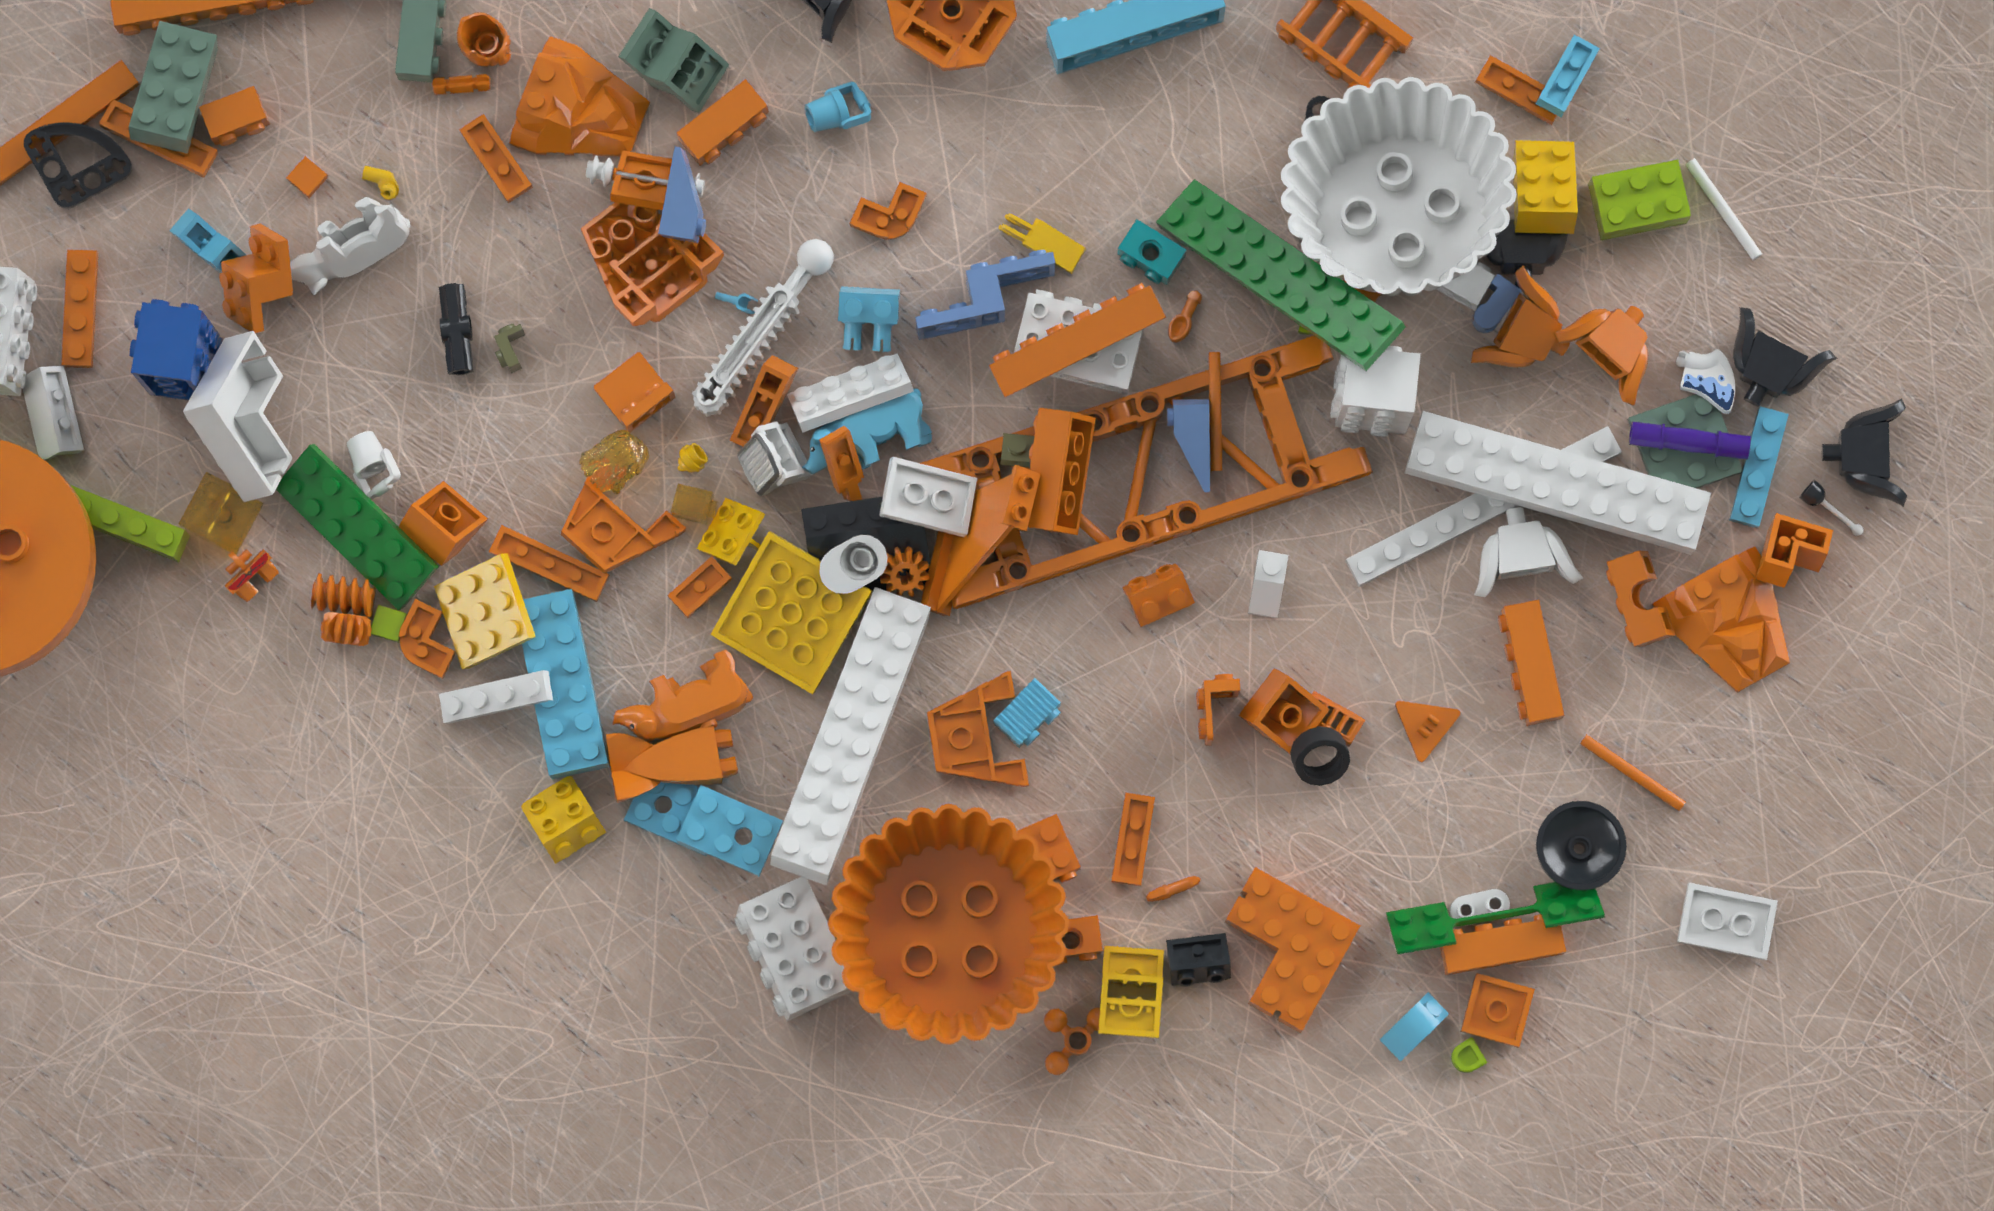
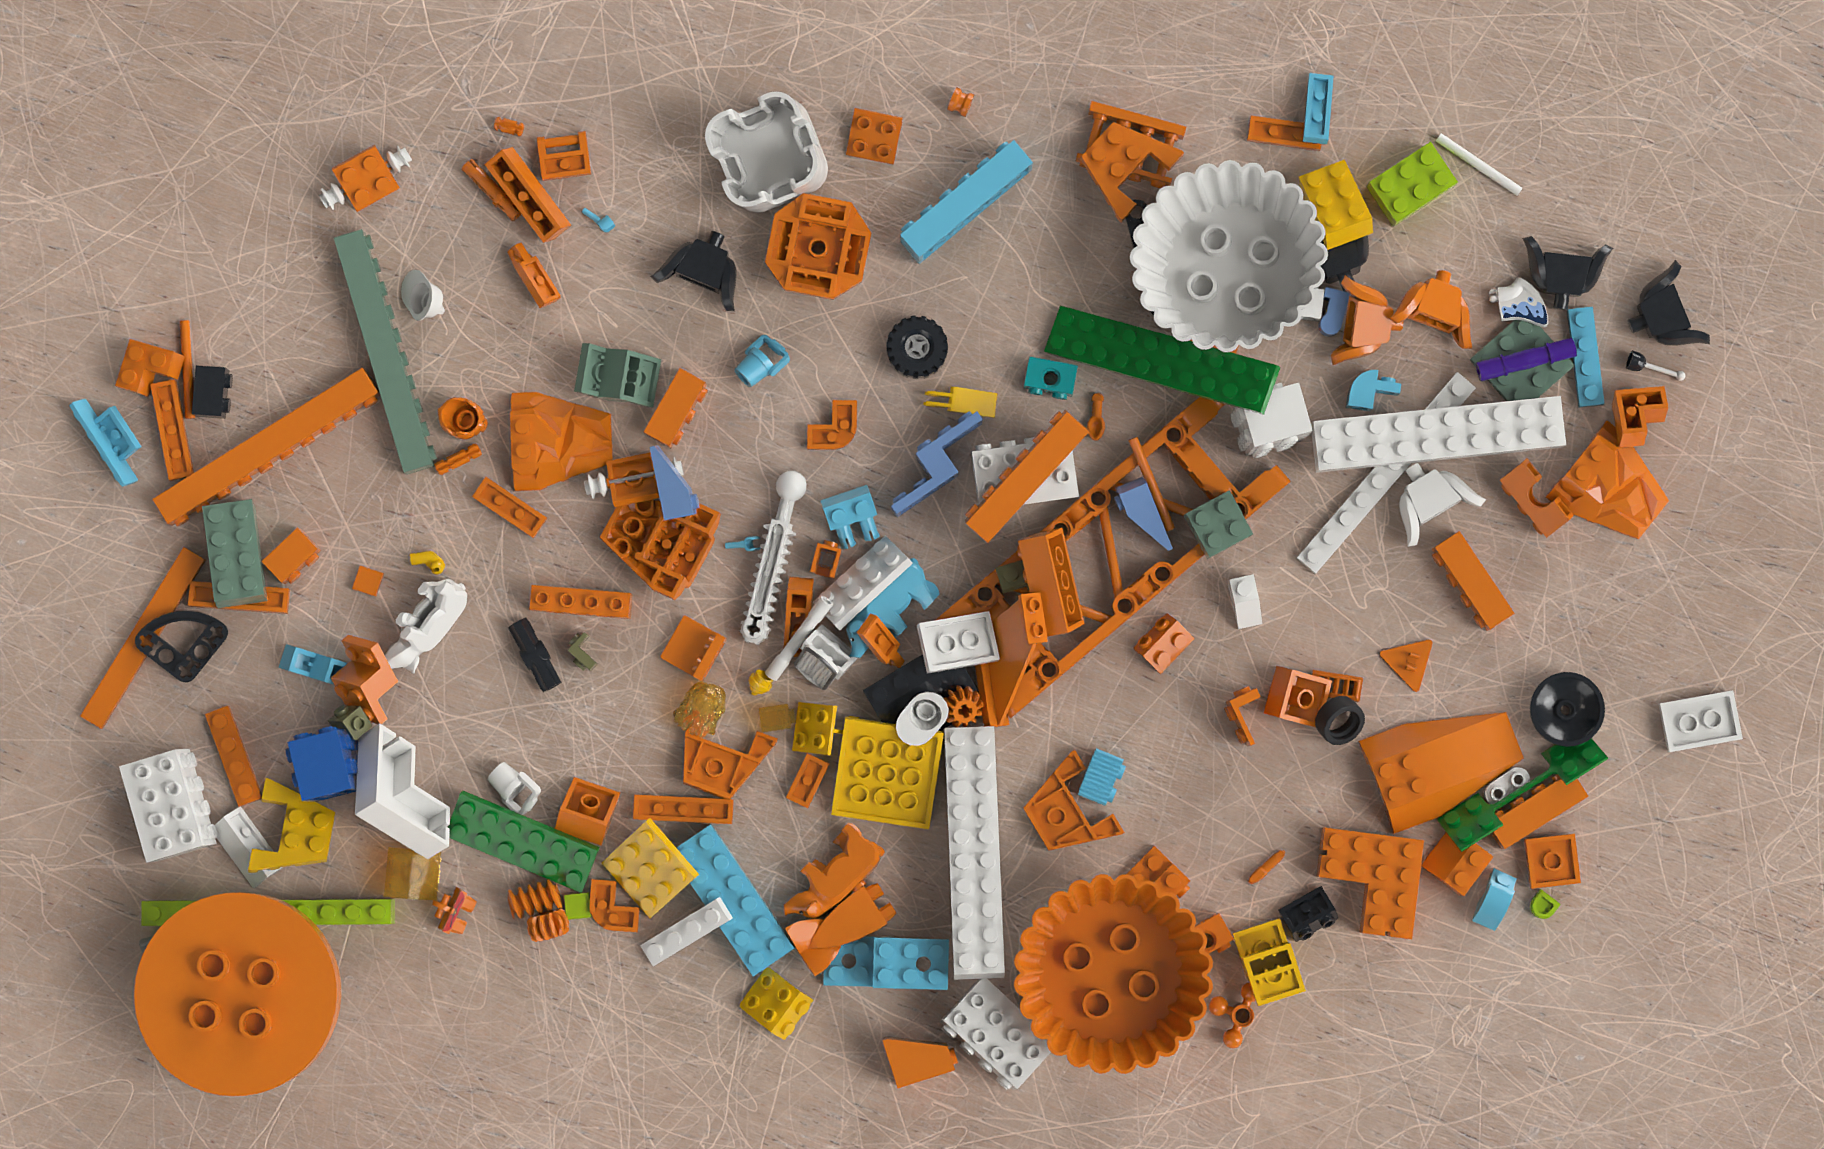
camera: 20 degrees left, 5 degrees up
(120, 422) = (304, 833): none -> yellow wing
(225, 316) = (352, 720): none -> olive bracket
(530, 291) = (580, 602): none -> orange brick
(694, 942) = (918, 1059): none -> orange slope
(780, 407) = (815, 616): none -> white piece
(820, 353) = (826, 559): none -> orange window
(1014, 147) = (910, 337): none -> black wheel
(1133, 839) = (1221, 841): orange plate -> none
(1270, 483) = (1218, 524): none -> sand green brick
(1323, 39) = (1117, 156): none -> orange wing
(1385, 972) = (1456, 868): none -> orange slope
(1412, 851) = (1438, 764): none -> orange wedge
(1500, 400) = (1363, 390): none -> medium azure brick
(1632, 772) = (1582, 634): orange piece -> none

